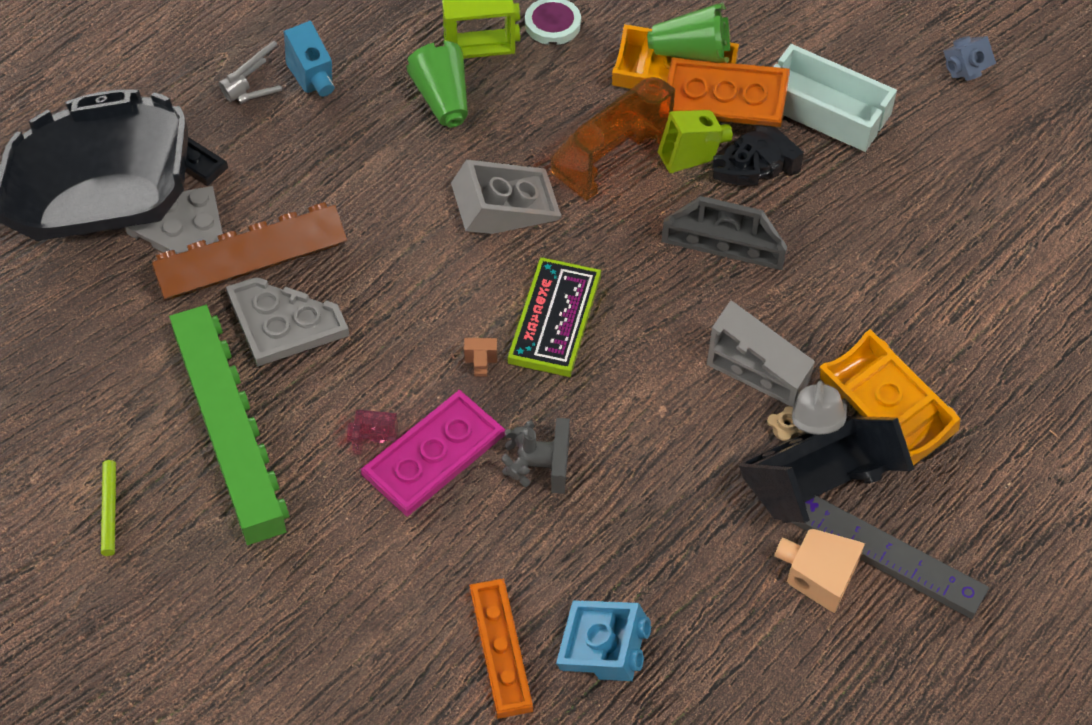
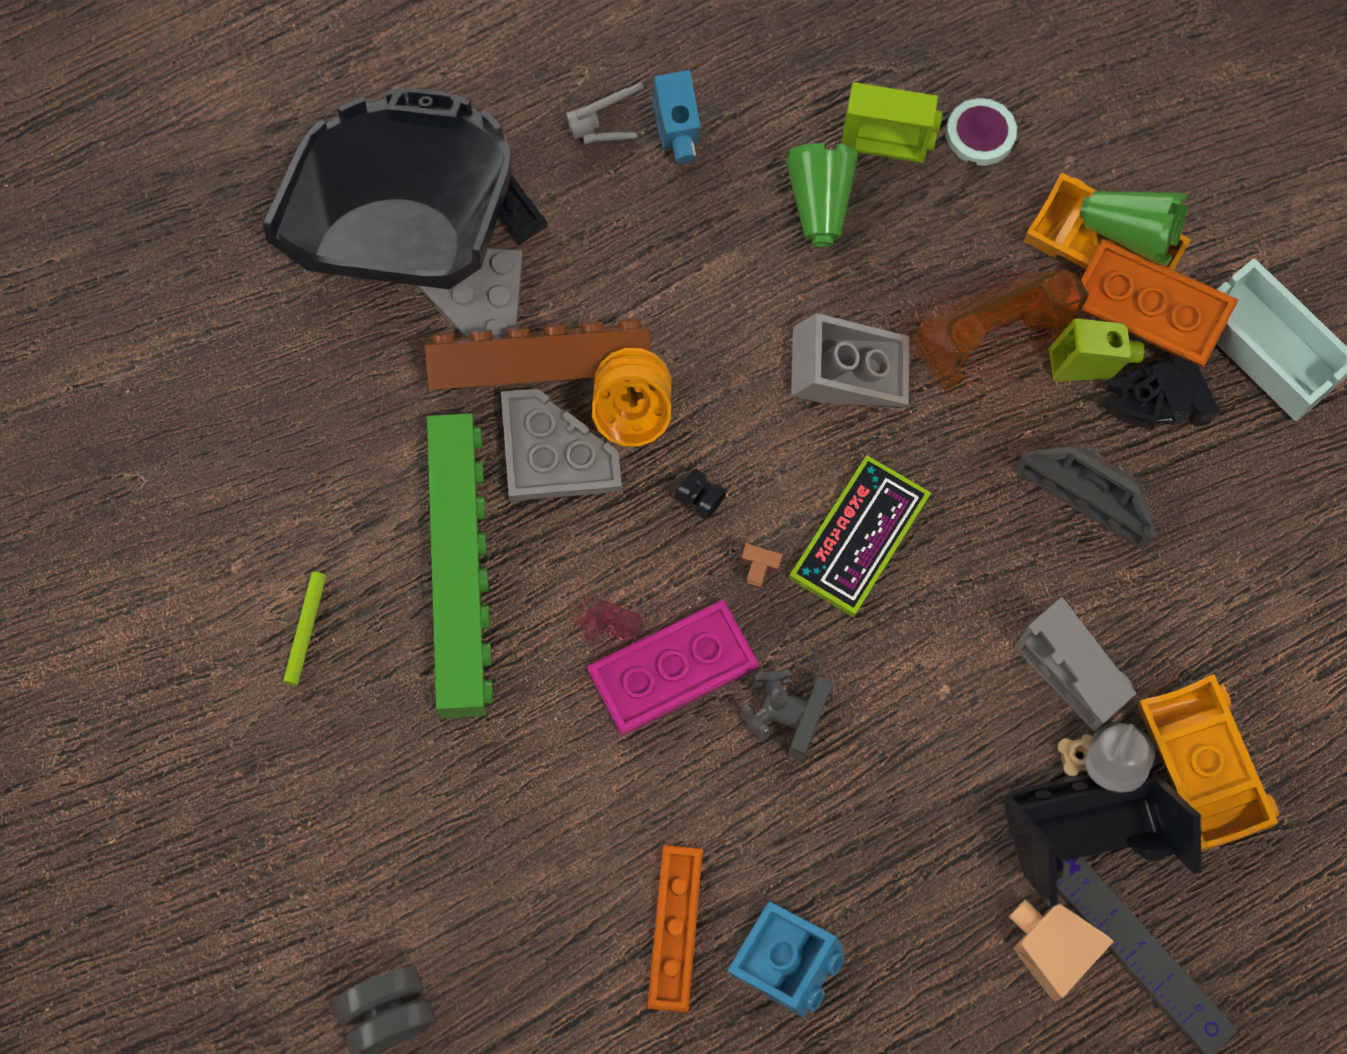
camera: 15 degrees right, 15 degrees up
(354, 260) = (627, 414): none -> light orange wheel
(415, 318) = (700, 494): none -> black wheel

